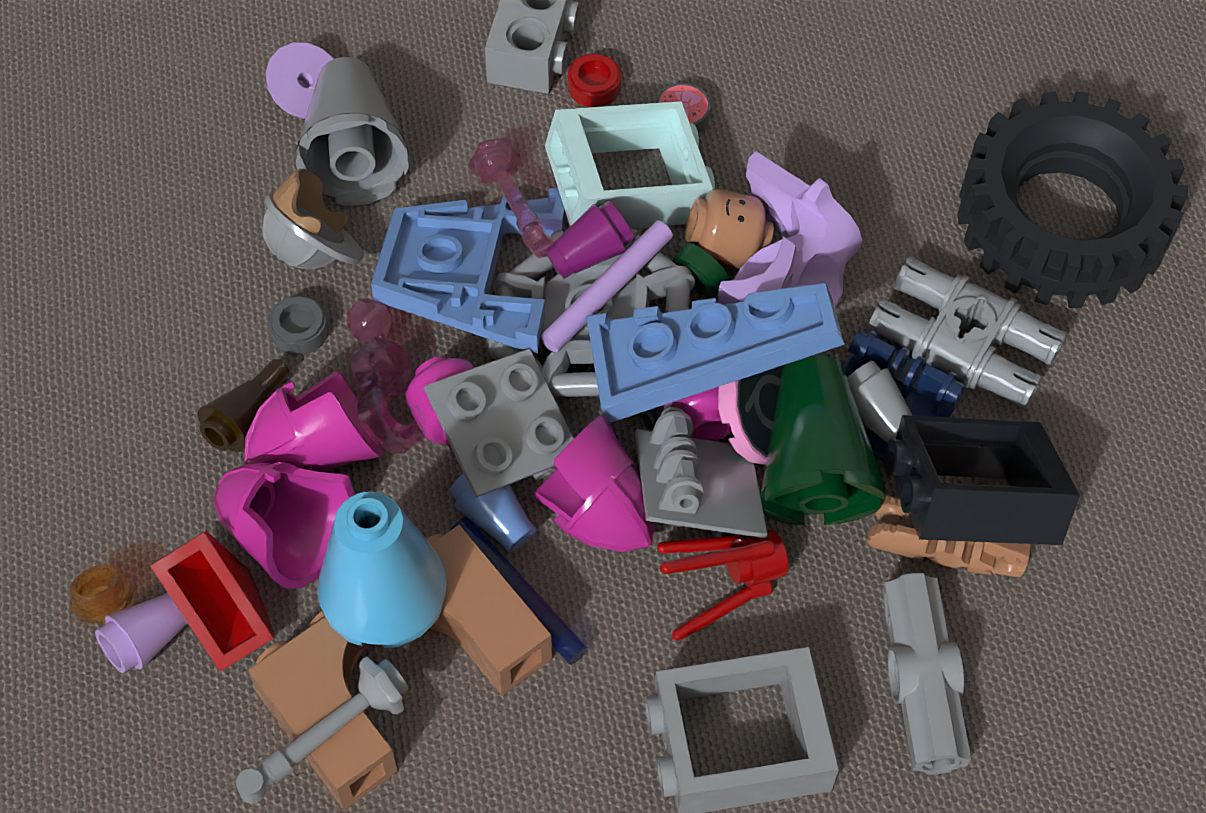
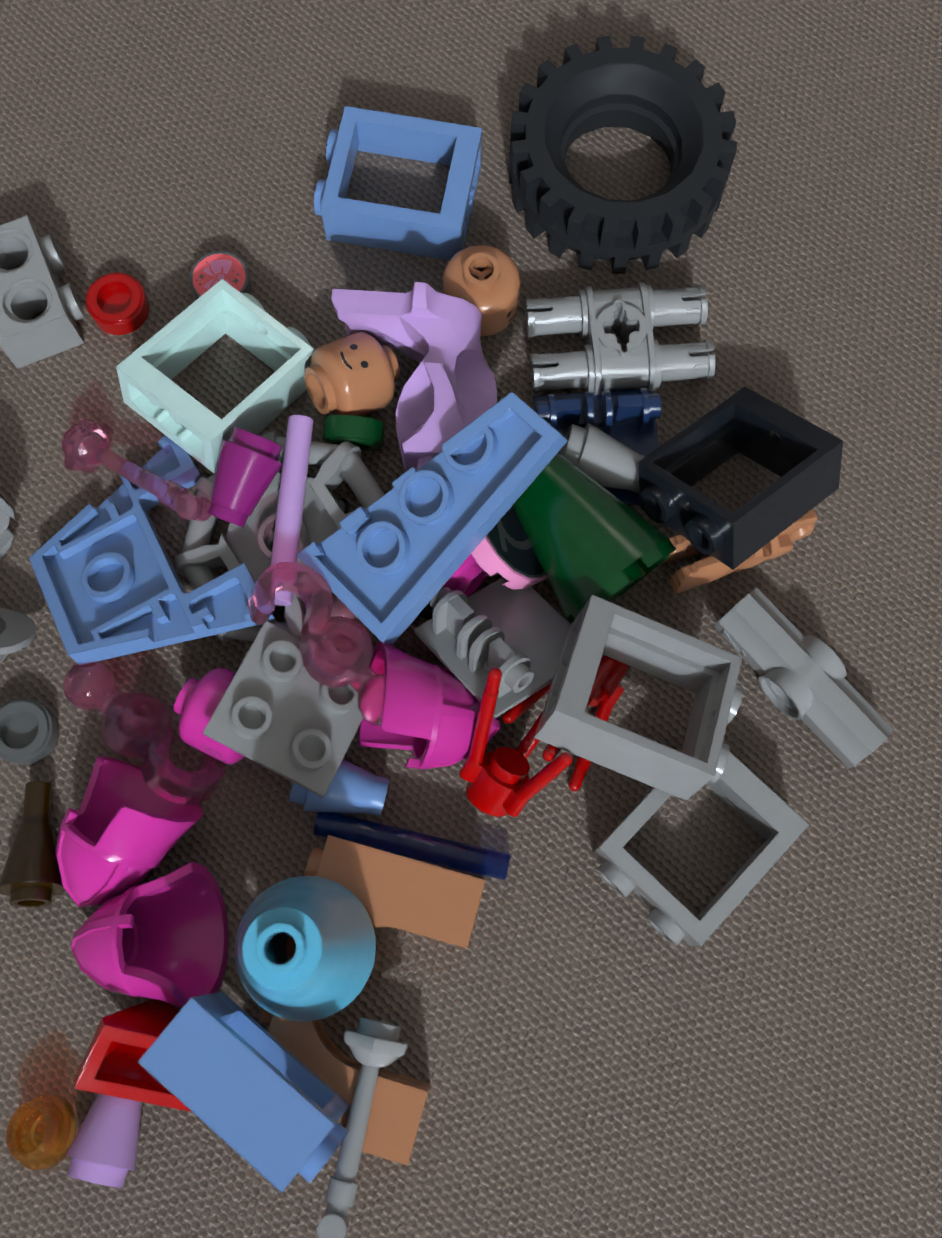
camera: 35 degrees left, 15 degrees up
(271, 629) = (248, 1089): none -> medium blue window
(563, 393) = (332, 648): none -> clear pink piece
(626, 579) = (500, 779): none -> red plant
(804, 547) = (664, 654): none -> light grey window
(873, 170) = (394, 226): none -> medium blue window
(886, 227) = (486, 280): none -> nougat head

